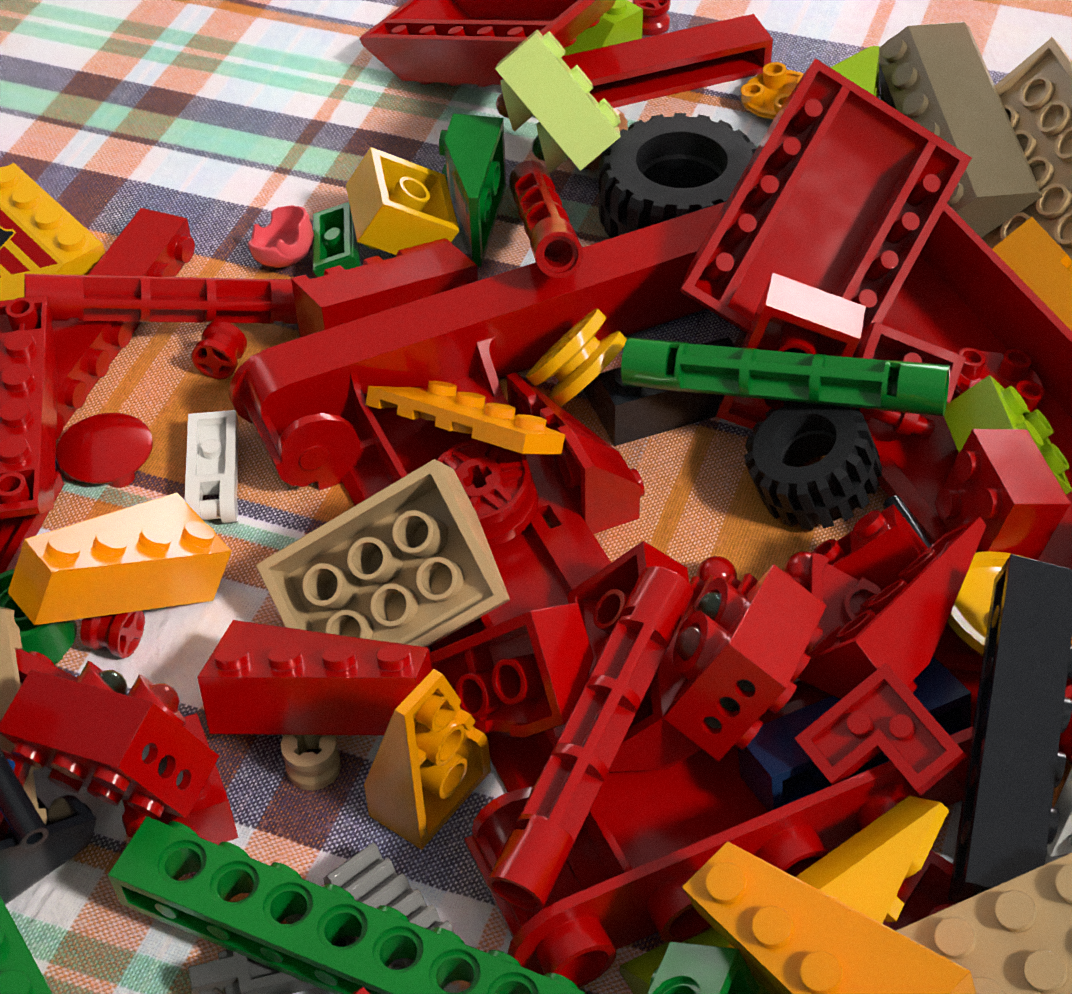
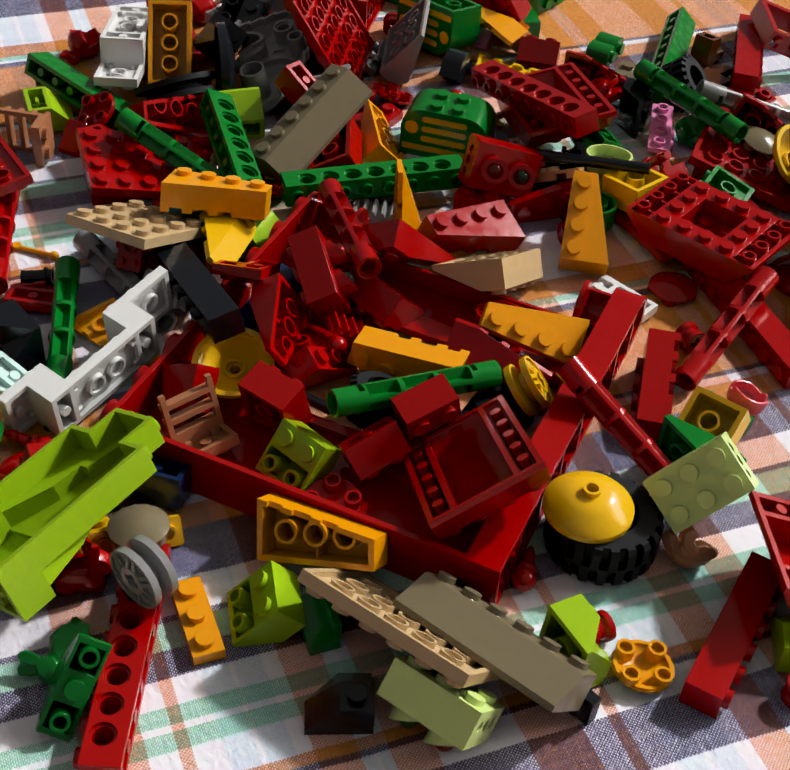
camera: 135 degrees right, 5 degrees down
(695, 162) = (588, 507): none -> yellow dish
(709, 485) = (391, 354): none -> light orange wedge

